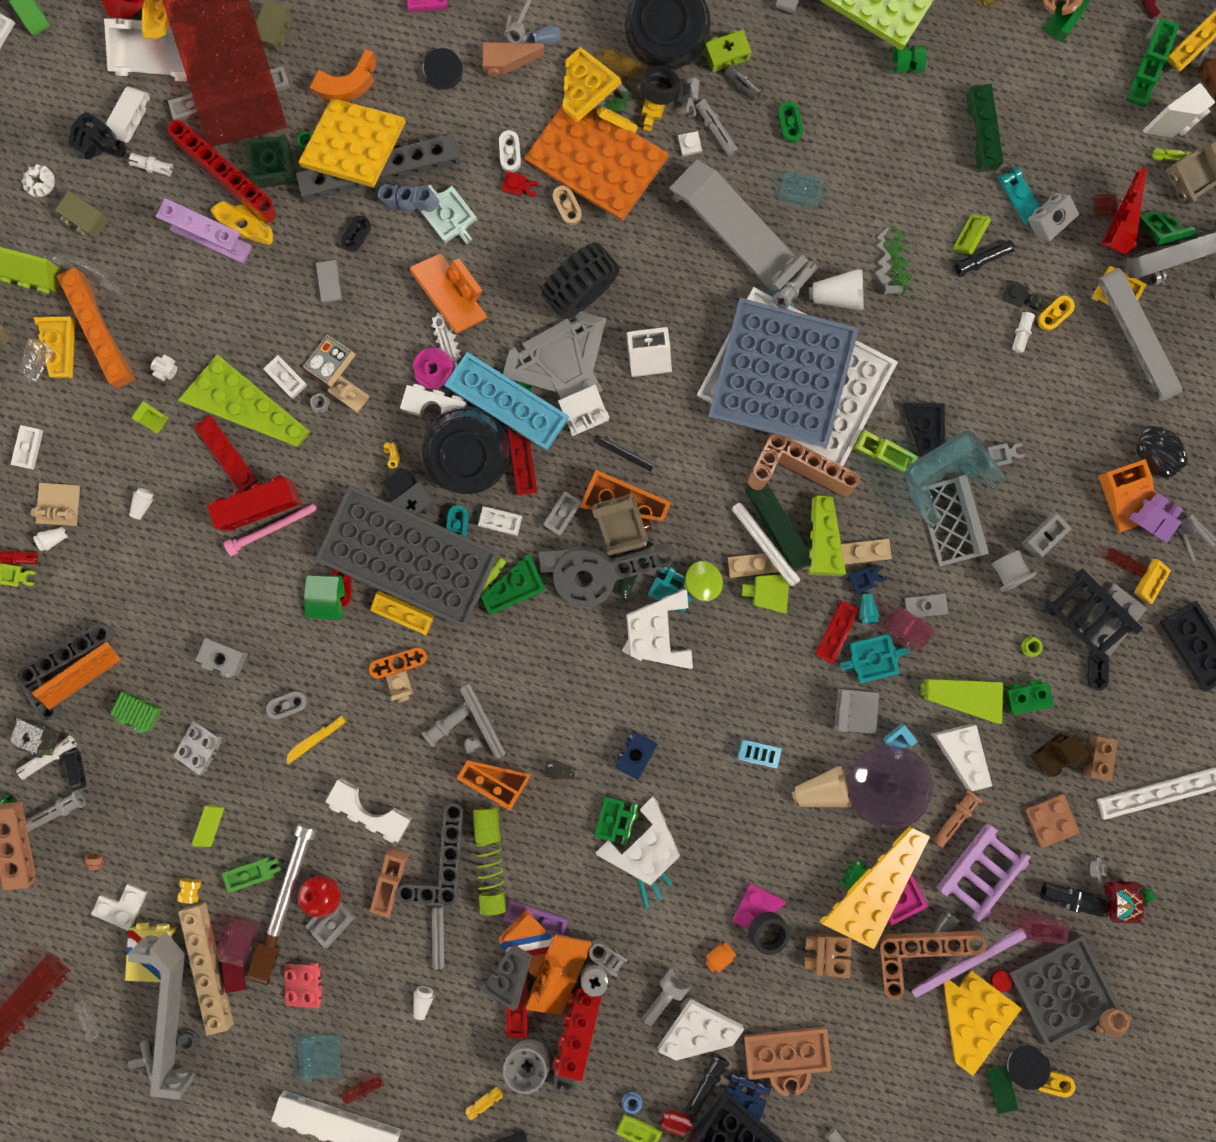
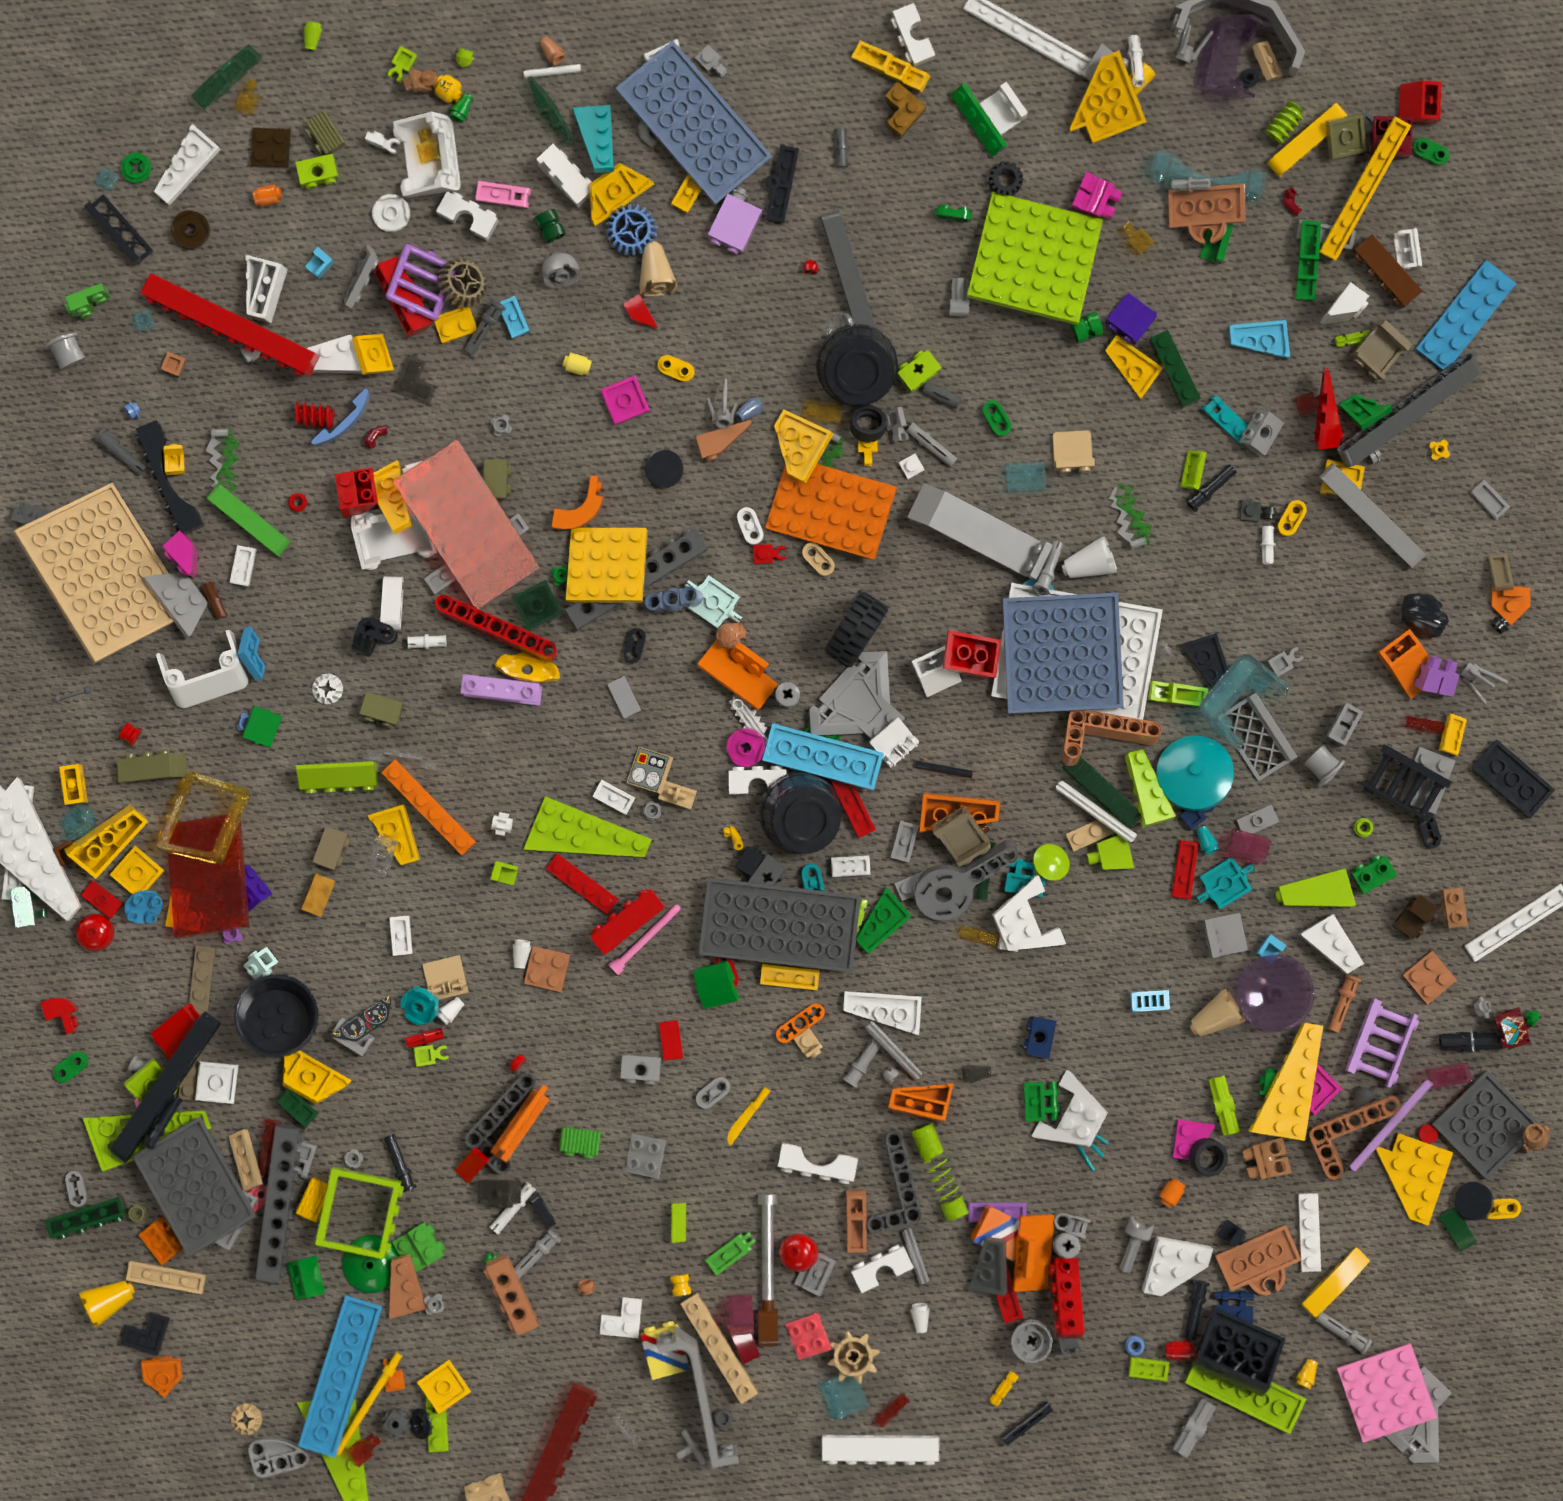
camera: 20 degrees left, 0 degrees up
(17, 700) = (472, 1165): none -> red tile
(19, 522) = (426, 999): none -> teal plate
(99, 612) = (517, 1063): none -> red tile
(162, 527) = (547, 969): none -> nougat plate
(262, 638) = (671, 1040): none -> red tile
(329, 1033) = (843, 1352): none -> tan brick
(416, 936) = (866, 1273): none -> white arch
(454, 248) = (730, 634): none -> nougat hair
(493, 320) = (789, 702): none -> light grey piece
(493, 678) = (893, 1010): none -> white wing
(606, 631) = (978, 935): none -> clear yellow axle
(616, 119) = (839, 468): yellow tile -> none
(689, 345) = (971, 654): none -> red slope
(768, 1020) = (1232, 1233): none -> black bracket
(801, 884) = (1224, 1105): none -> lime piece
(848, 1043) = (1309, 1232): none -> white plate
(856, 178) = (1073, 451): none -> tan bracket
(859, 1105) = (1335, 1282): none -> yellow slope
(879, 537) = (1195, 773): none -> teal dish
(944, 112) = (1134, 365): none -> yellow wing
(955, 66) = (1131, 319): none -> dark purple bracket
(1081, 125) = (1262, 337): none -> medium azure wing

